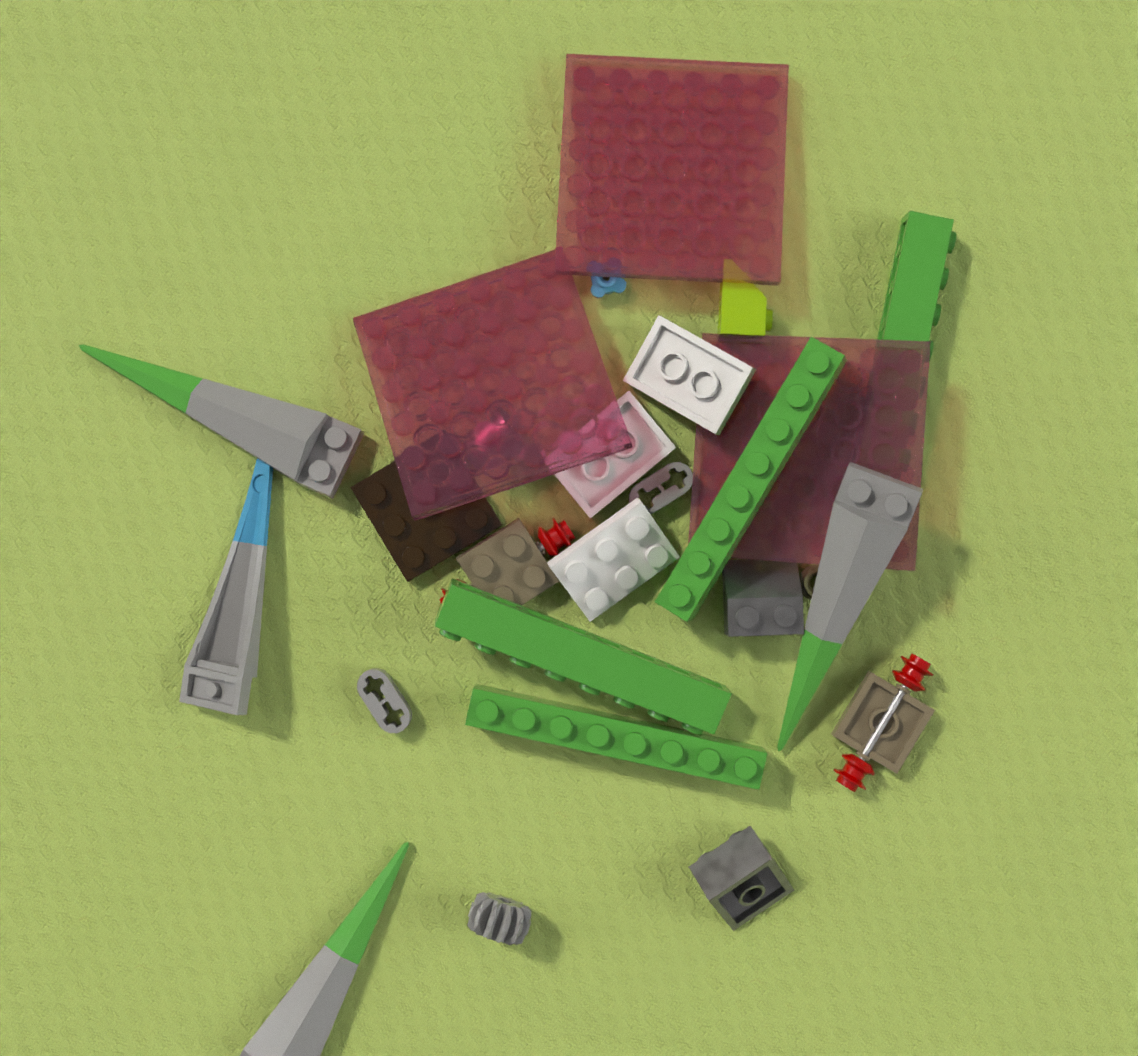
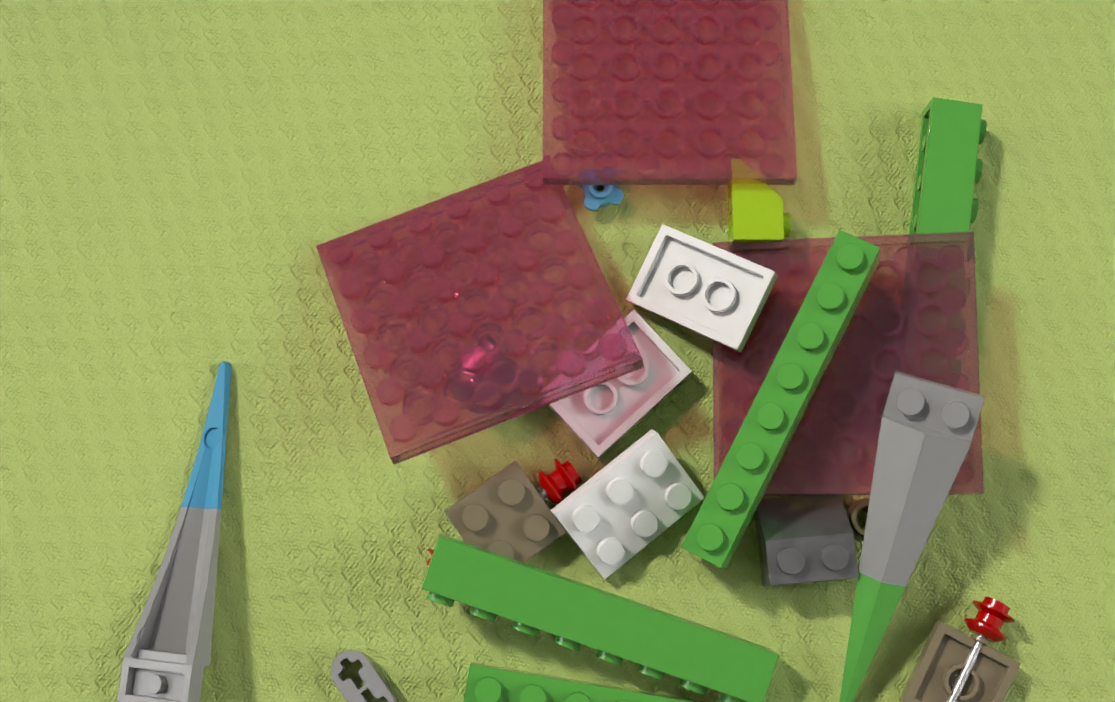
camera: 10 degrees left, 10 degrees down
(285, 436) = (240, 381): light grey plate -> none
(424, 542) = (407, 492): dark brown plate -> none
(659, 477) = (671, 411): light grey beam -> none

